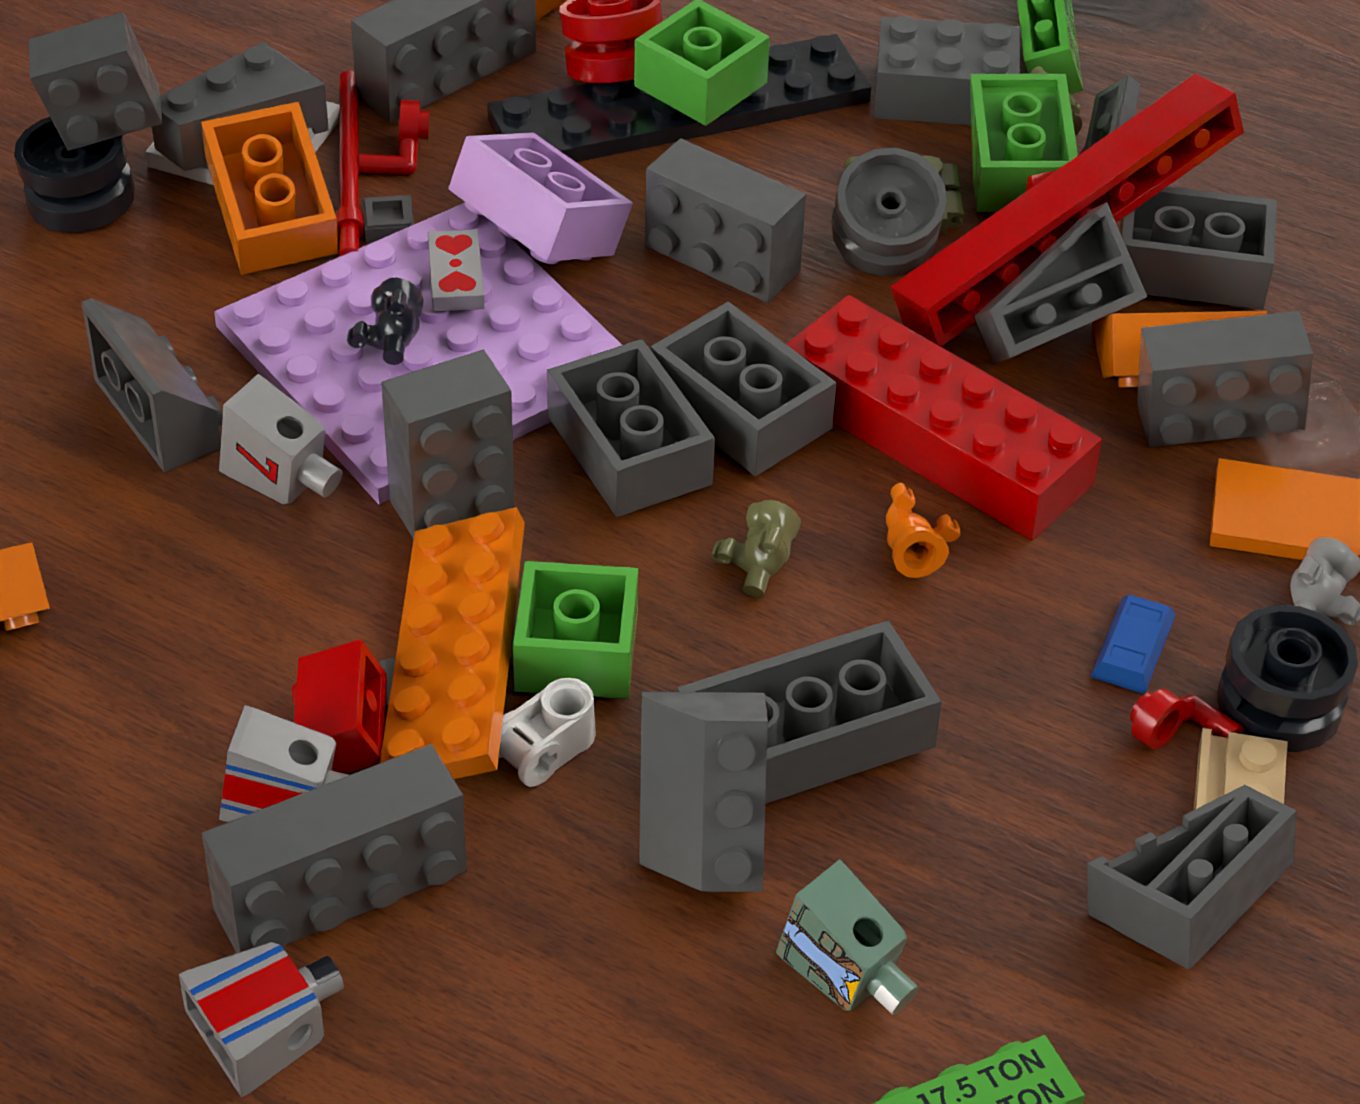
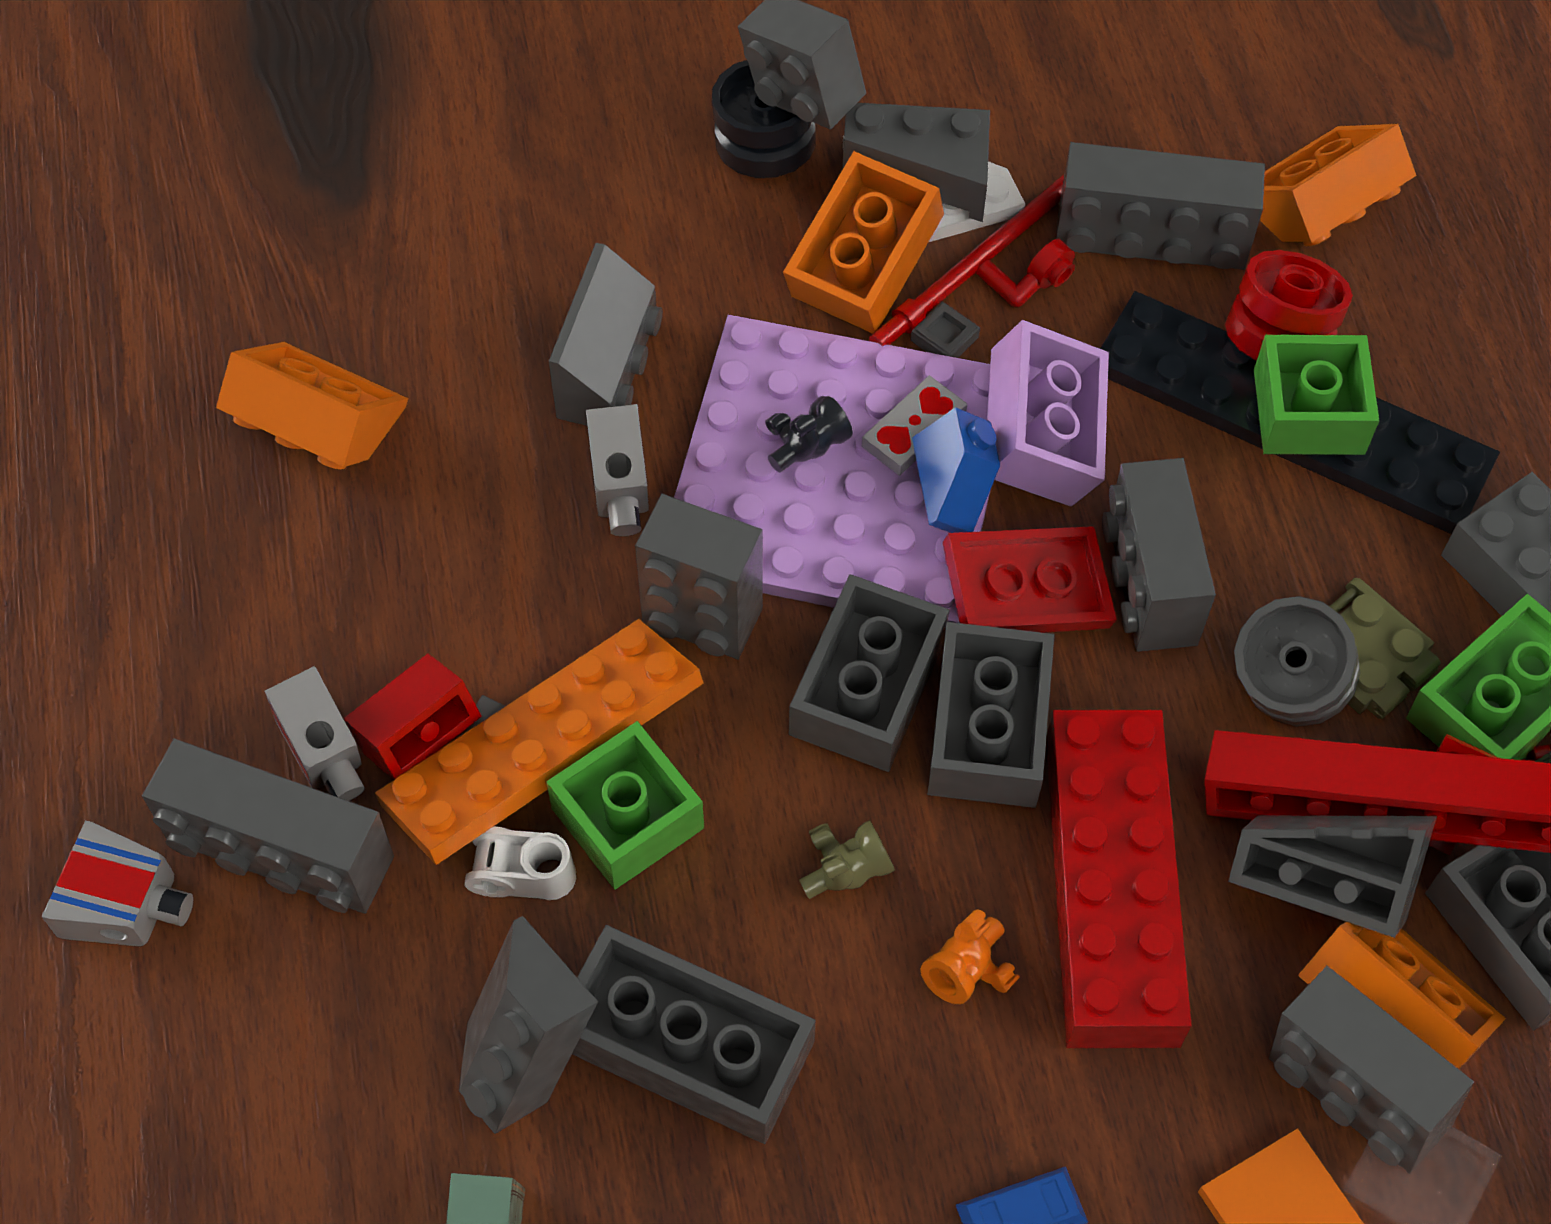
camera: 50 degrees right, 15 degrees up
(529, 259) = (956, 469): none -> blue slope
(653, 297) = (1030, 579): none -> red plate

